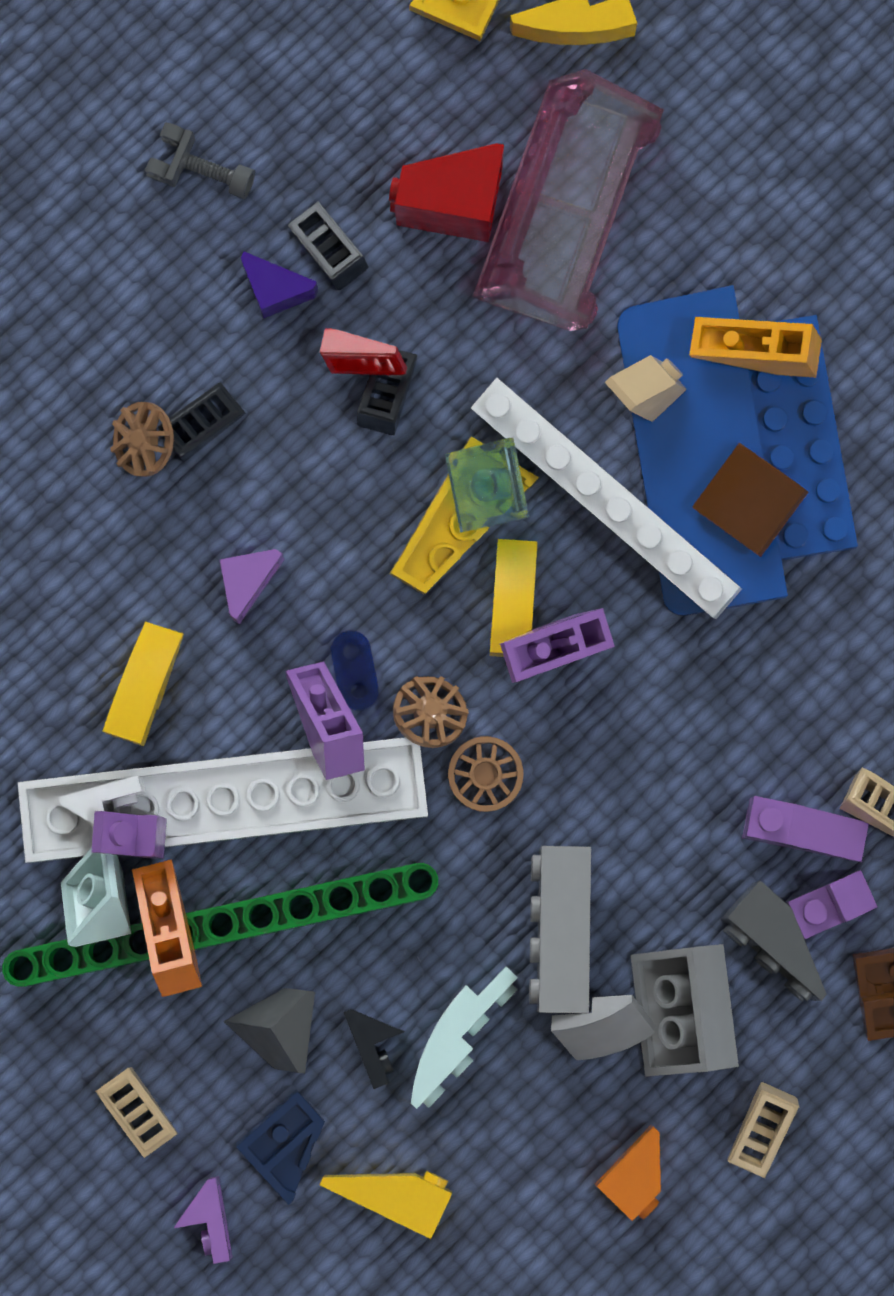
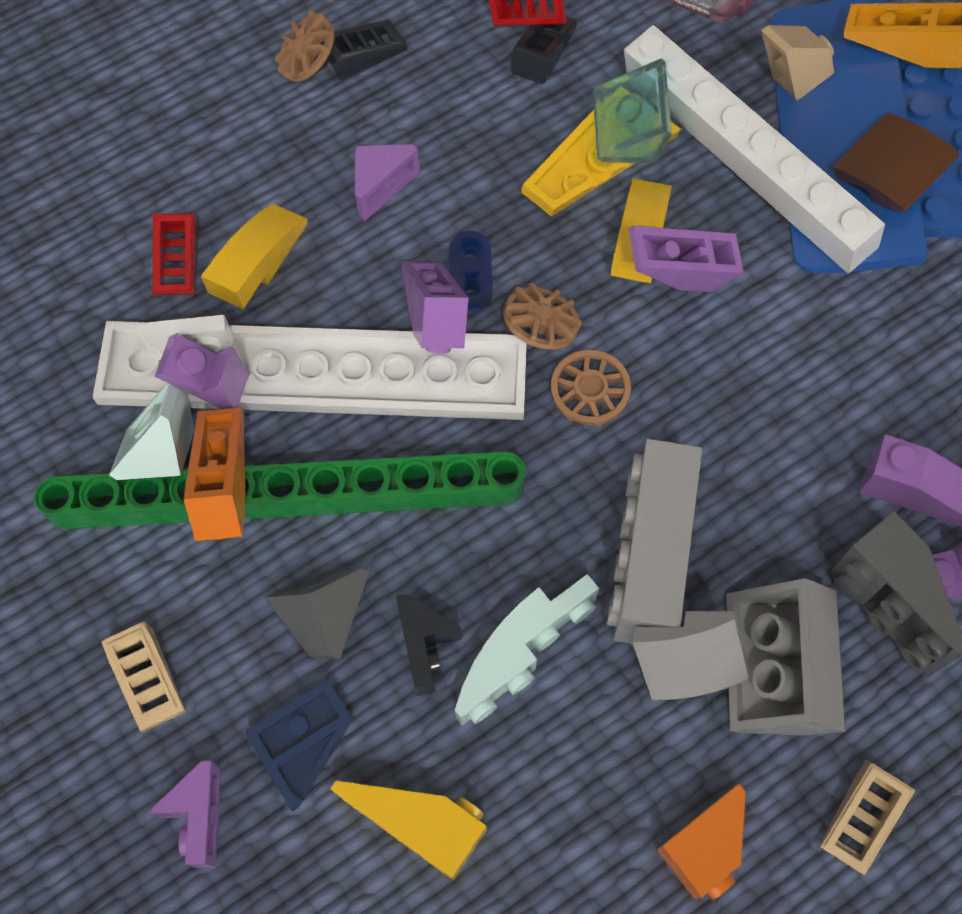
camera: 10 degrees right, 15 degrees down
(45, 682) = (174, 223): none -> red slope

